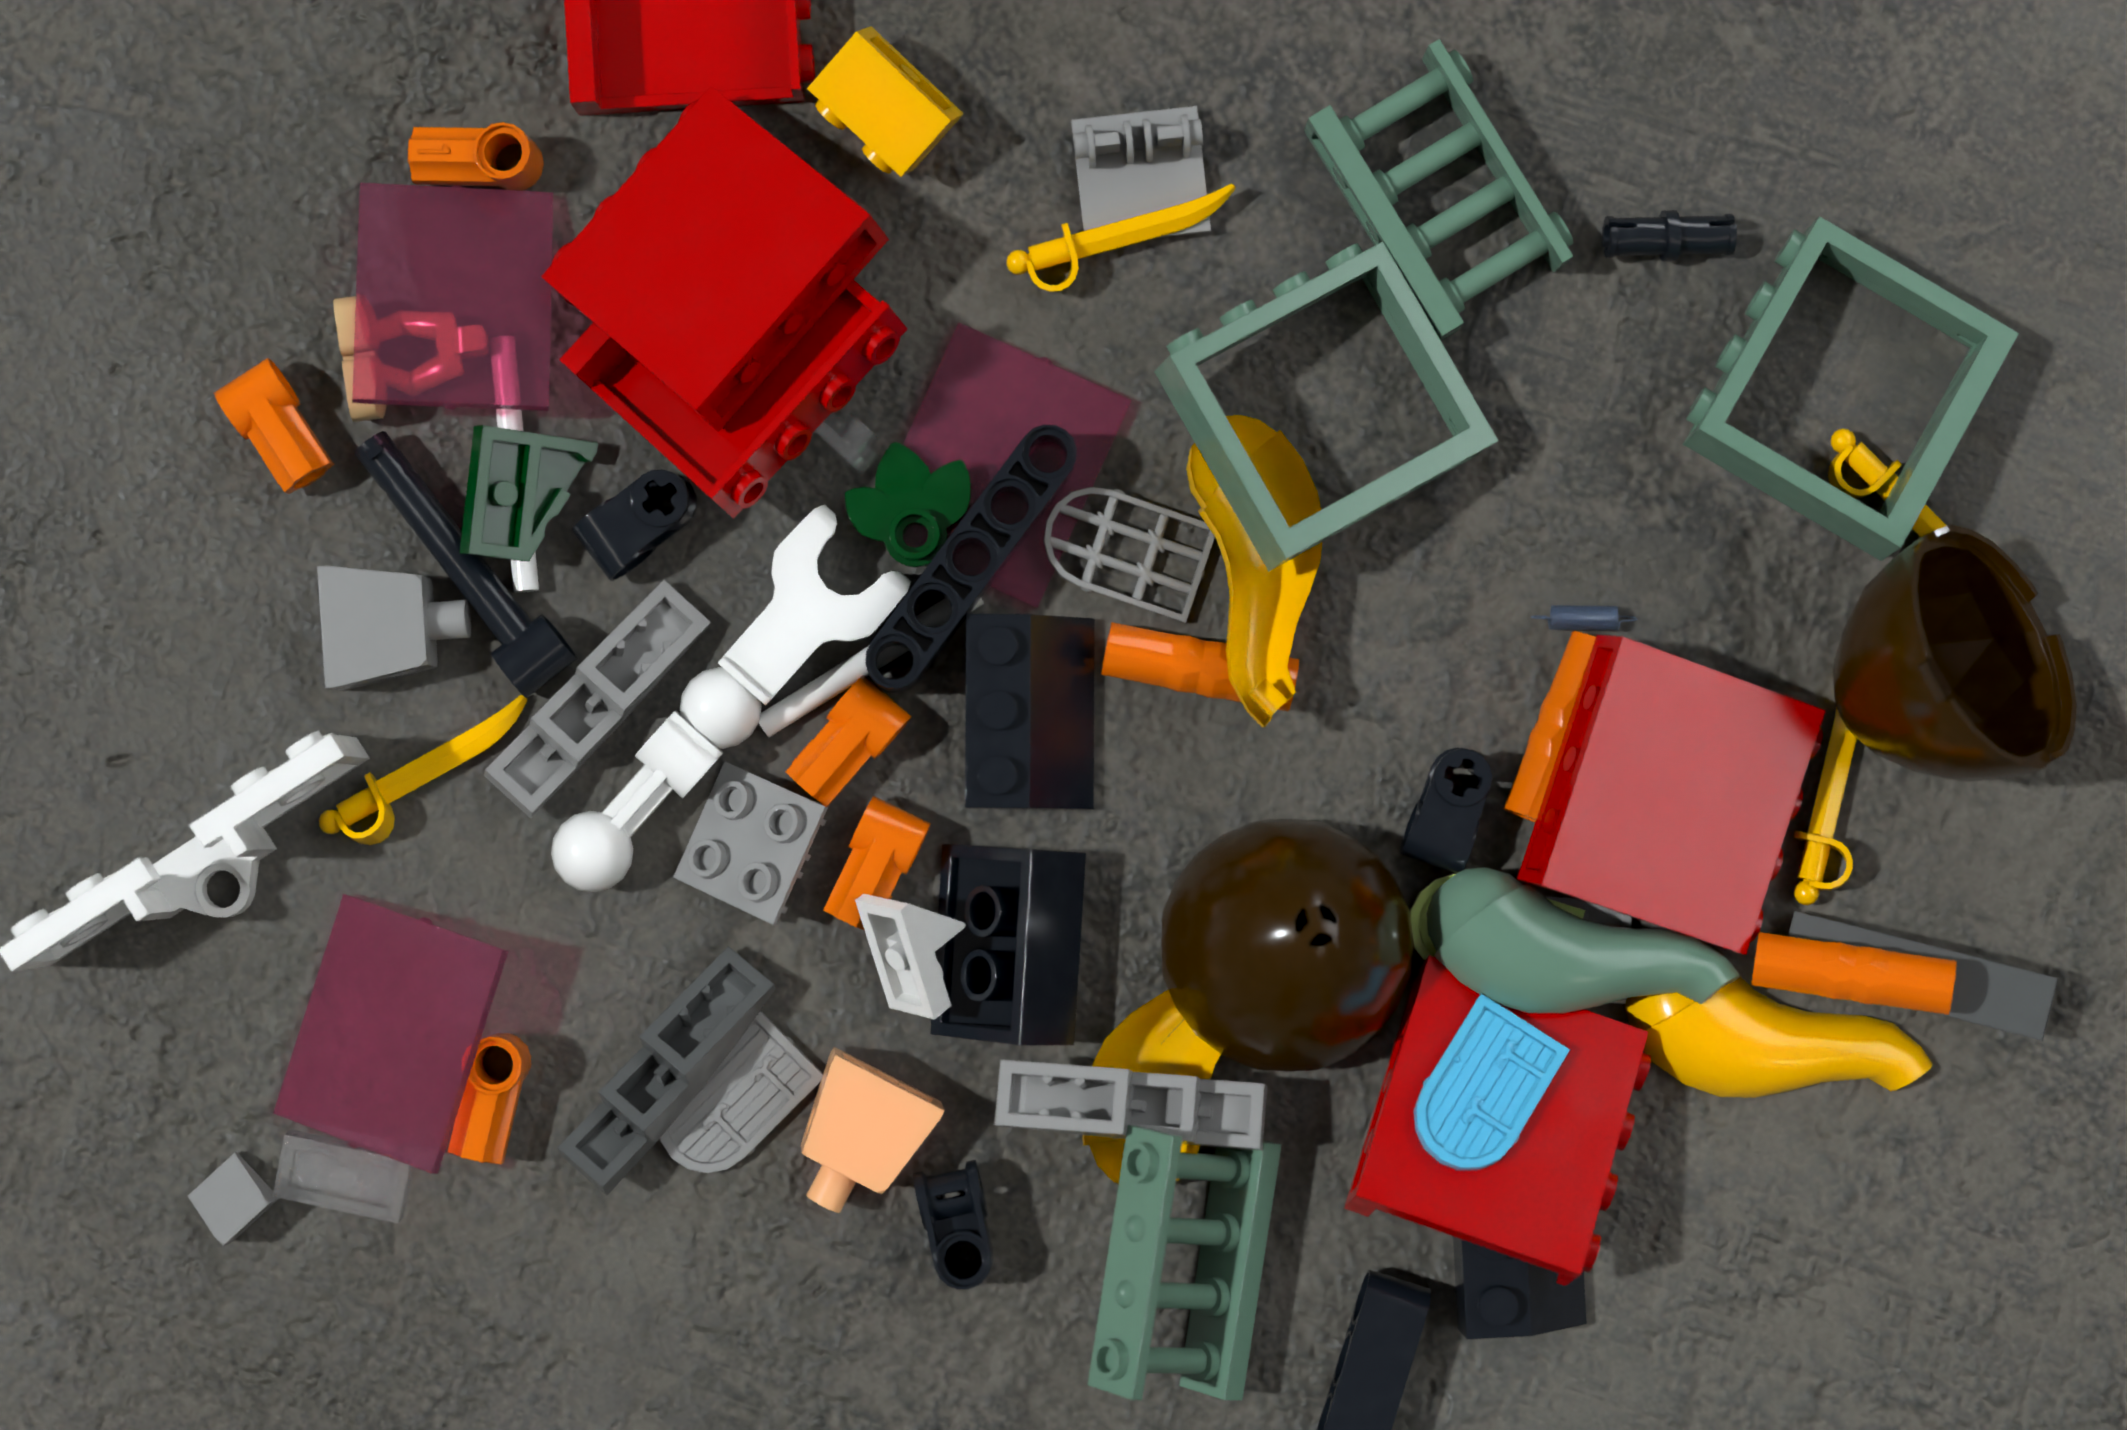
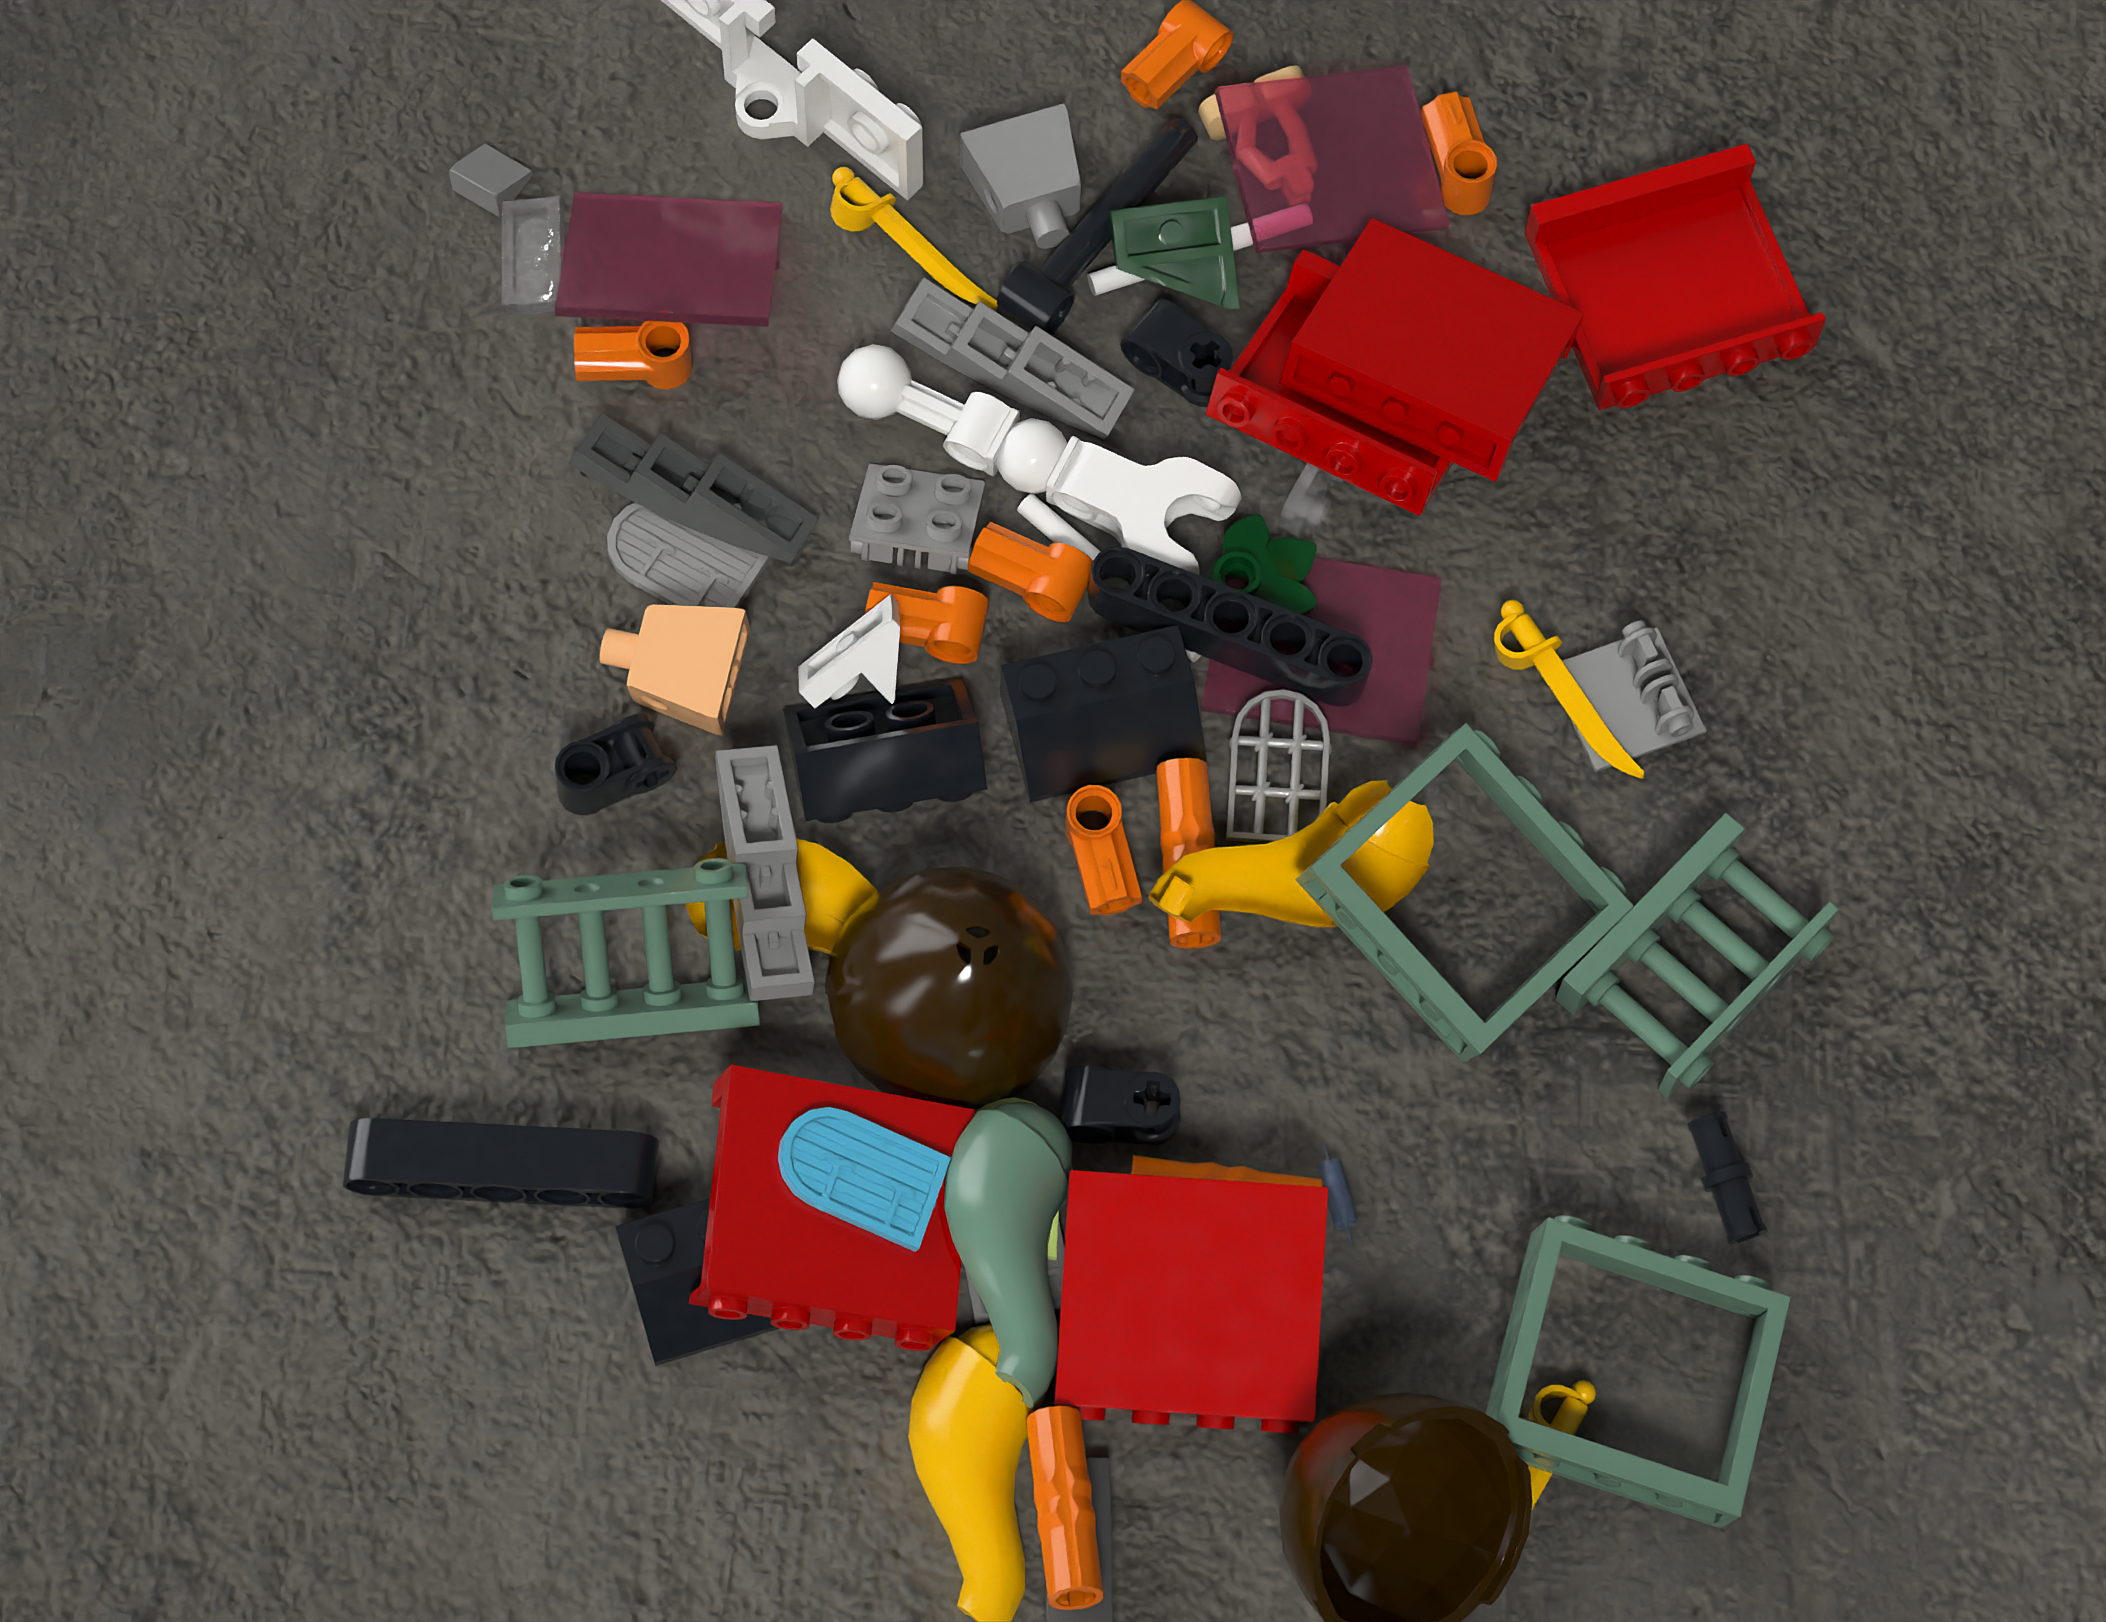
camera: 75 degrees right, 20 degrees down
(883, 102) = (1618, 459): yellow brick -> none
(1184, 754) = (1103, 853): none -> orange piece
(1824, 819) = (1197, 1467): yellow sword -> none

